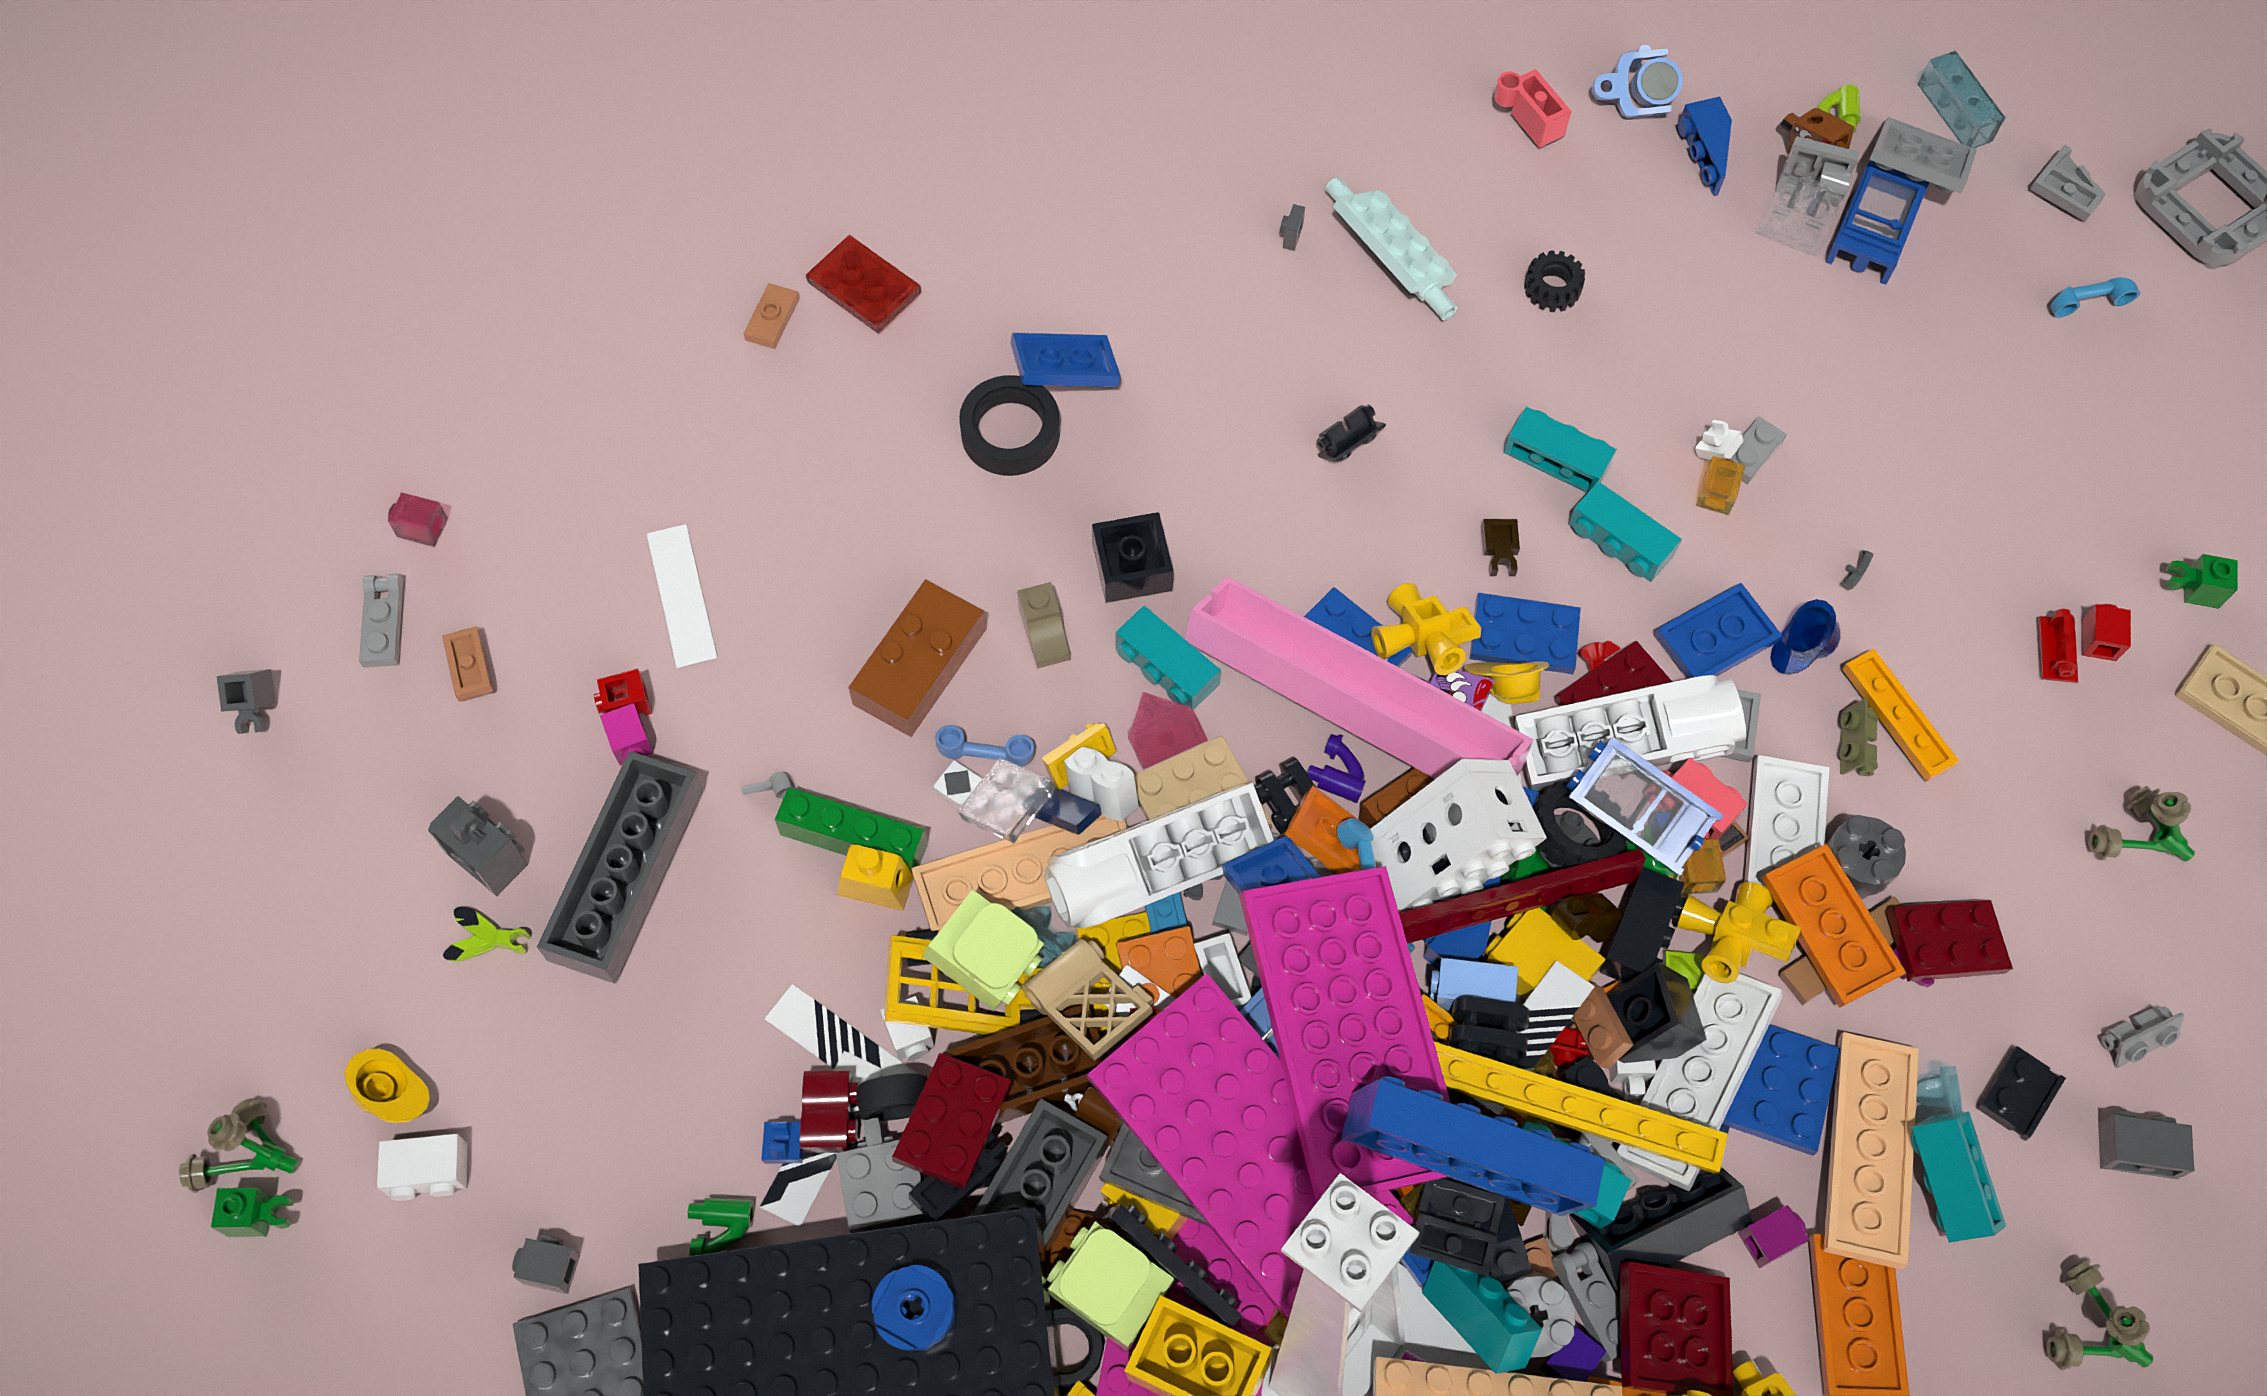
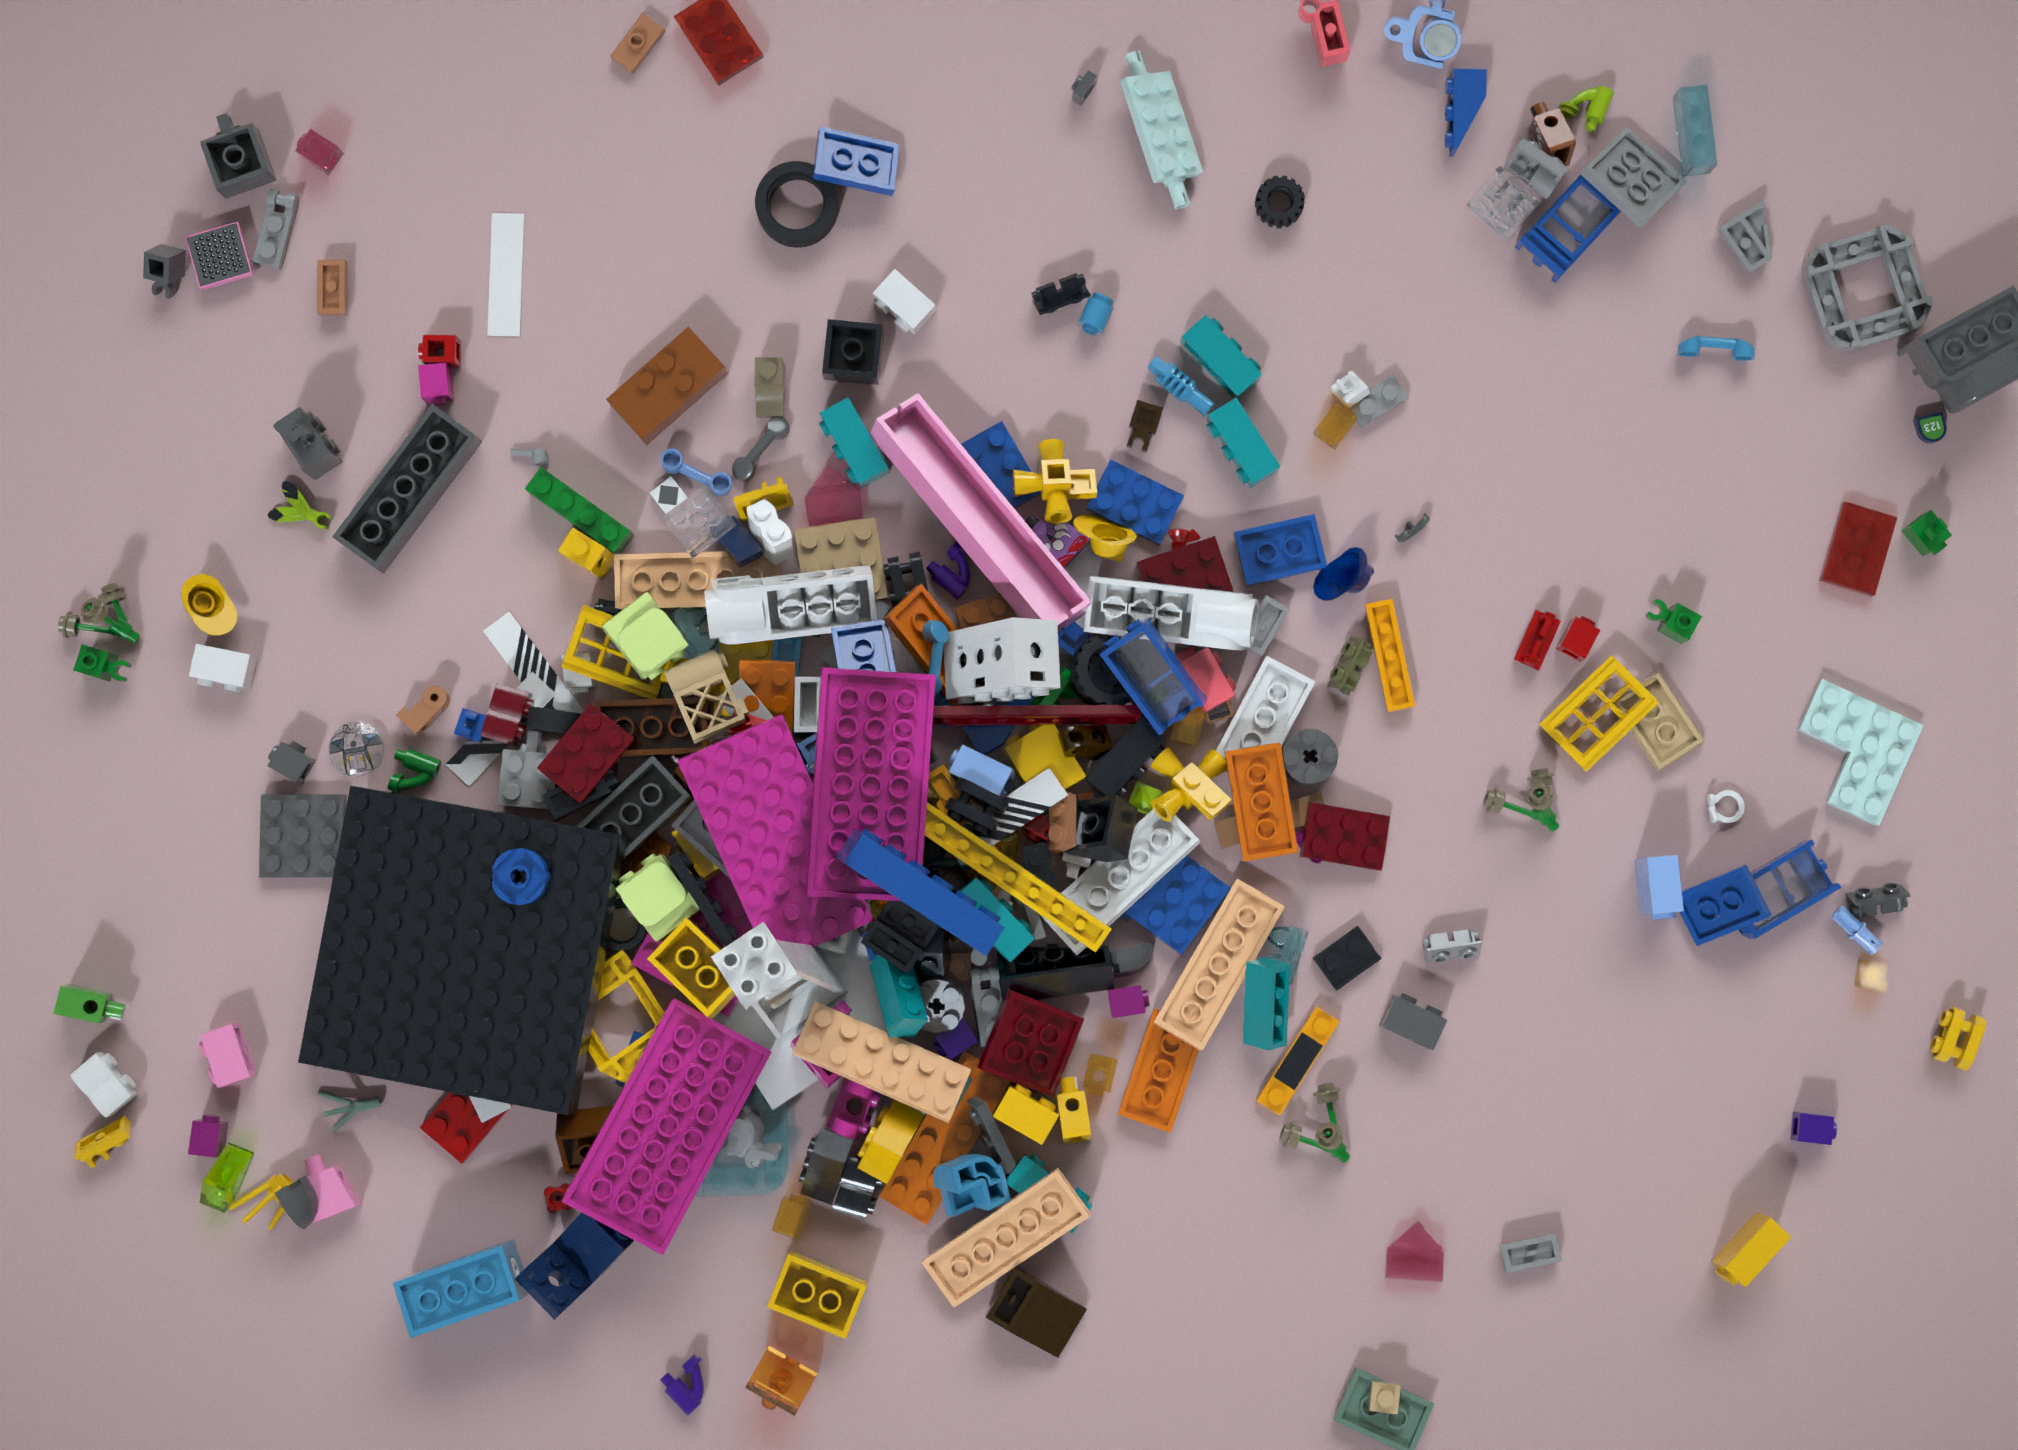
camera: 20 degrees right, 20 degrees up
(316, 666) = (219, 256): none -> tile
(317, 551) = (237, 158): none -> dark grey hinge
(632, 1222) = (356, 749): none -> clear dish
(716, 1140) = (426, 711): none -> nougat leg
(1041, 722) = (743, 467): none -> dark grey bar
(1171, 491) = (903, 302): none -> white piece
(1398, 444) = (1096, 314): none -> dark azure brick
(1523, 492) = (1179, 385): none -> dark azure hinge
(1757, 1177) = (1131, 959): none -> dark grey brick
(1768, 1334) = (1105, 1064): none -> clear yellow brick
(2023, 1248) = (1297, 1060): none -> plate
(2203, 723) = (1613, 734): none -> yellow piece

